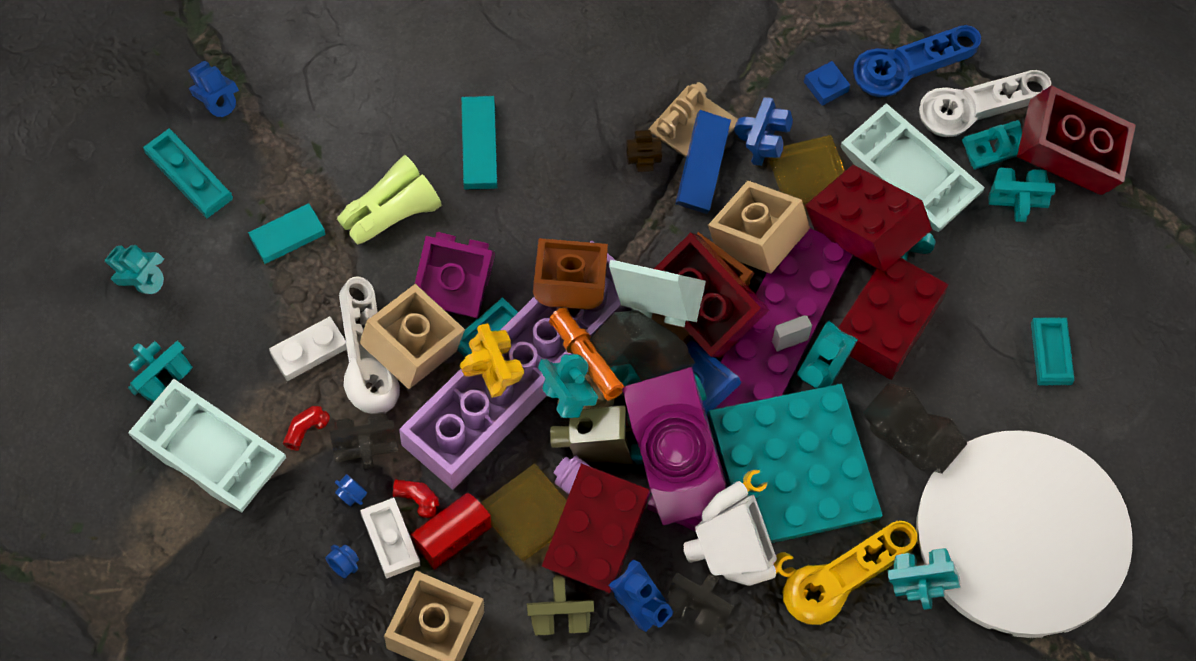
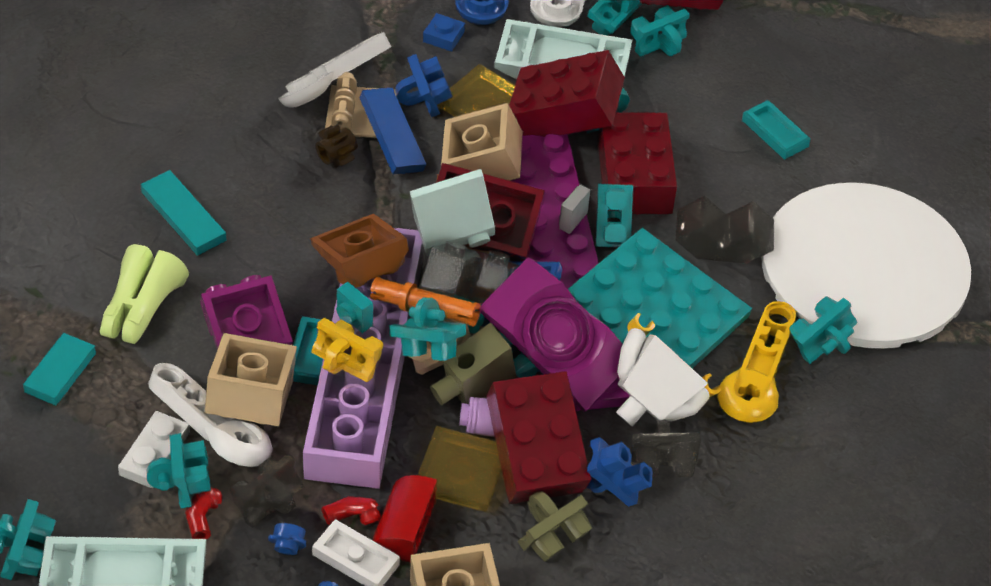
camera: 35 degrees left, 15 degrees down
(303, 382) = (185, 470): none -> teal hips
(524, 326) = (354, 307): none -> teal plate
(662, 79) = (317, 81): none -> white beam

